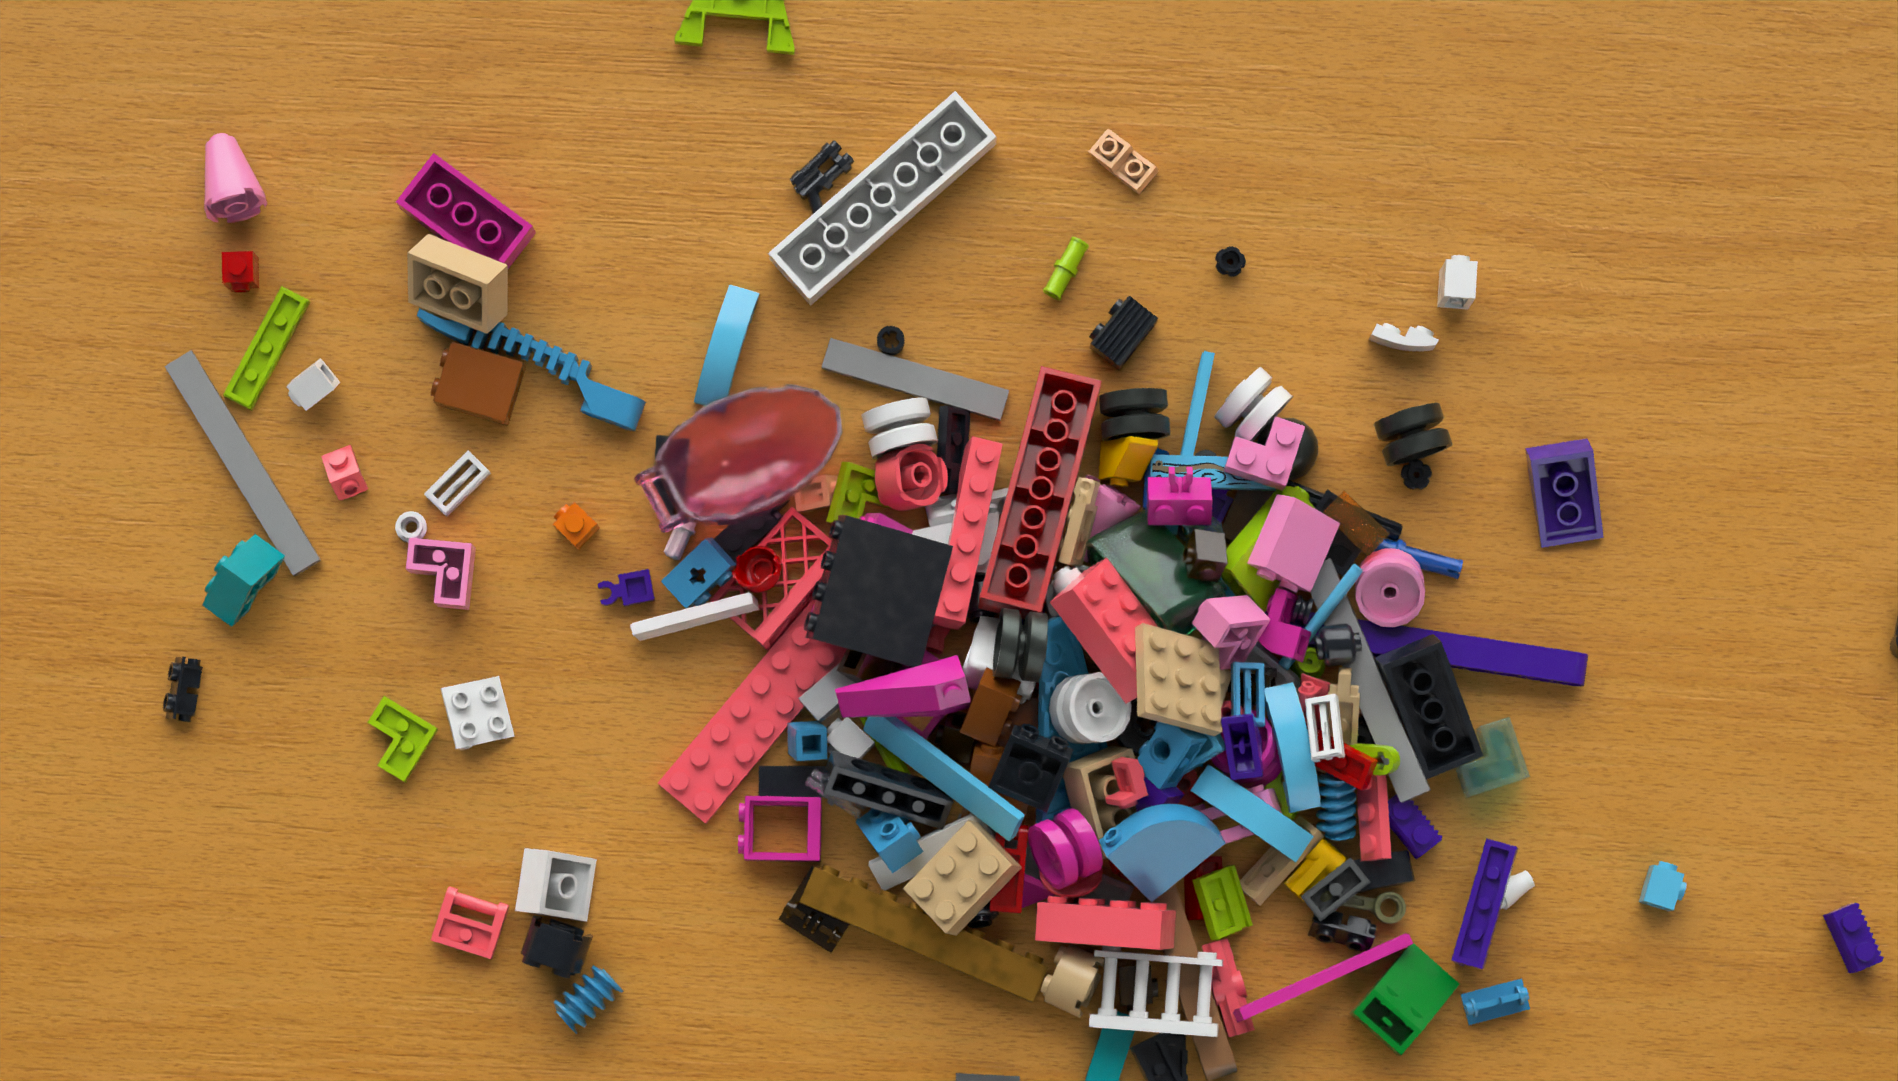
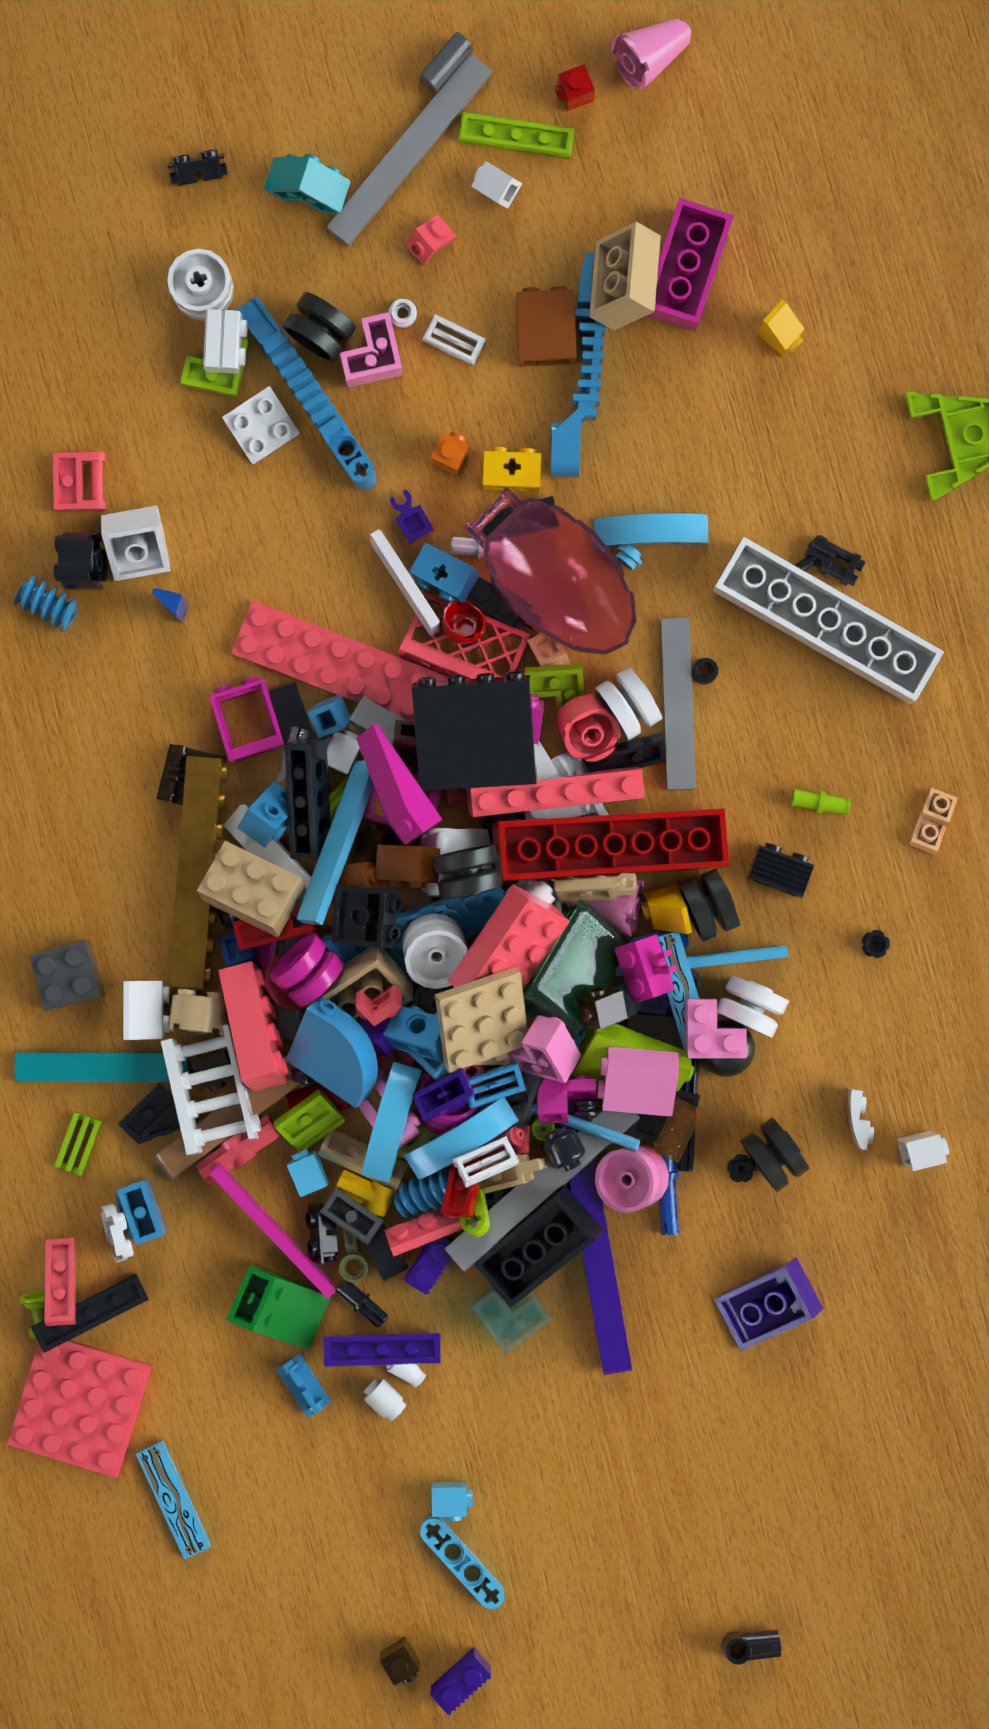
camera: 70 degrees right, 5 degrees up
(166, 395) = (446, 62): none -> dark grey brick
(290, 722) = (195, 268): none -> white wheel
(378, 720) = (223, 341): none -> white brick
(397, 616) = (319, 326): none -> pearl dark grey wheel
(462, 649) = (308, 393): none -> dark azure piece
(567, 144) = (781, 329): none -> yellow slope
(618, 485) = (497, 476): none -> yellow brick
(633, 865) = (173, 602): none -> blue slope
(746, 378) = (629, 557): none -> medium azure plate
(1018, 923) = (231, 952): none -> blue bracket
(1050, 1034) = (145, 1009): none -> white slope
(1175, 892) = (300, 1077): none -> black plate
(1274, 922) = (307, 1172): none -> medium azure brick
(1429, 911) = (362, 1303): none -> black axle
(1536, 921) = (384, 1399): none -> white brick
(1729, 894) = (464, 1560): none -> medium azure beam
(1814, 994) = (400, 1662): none -> dark brown brick

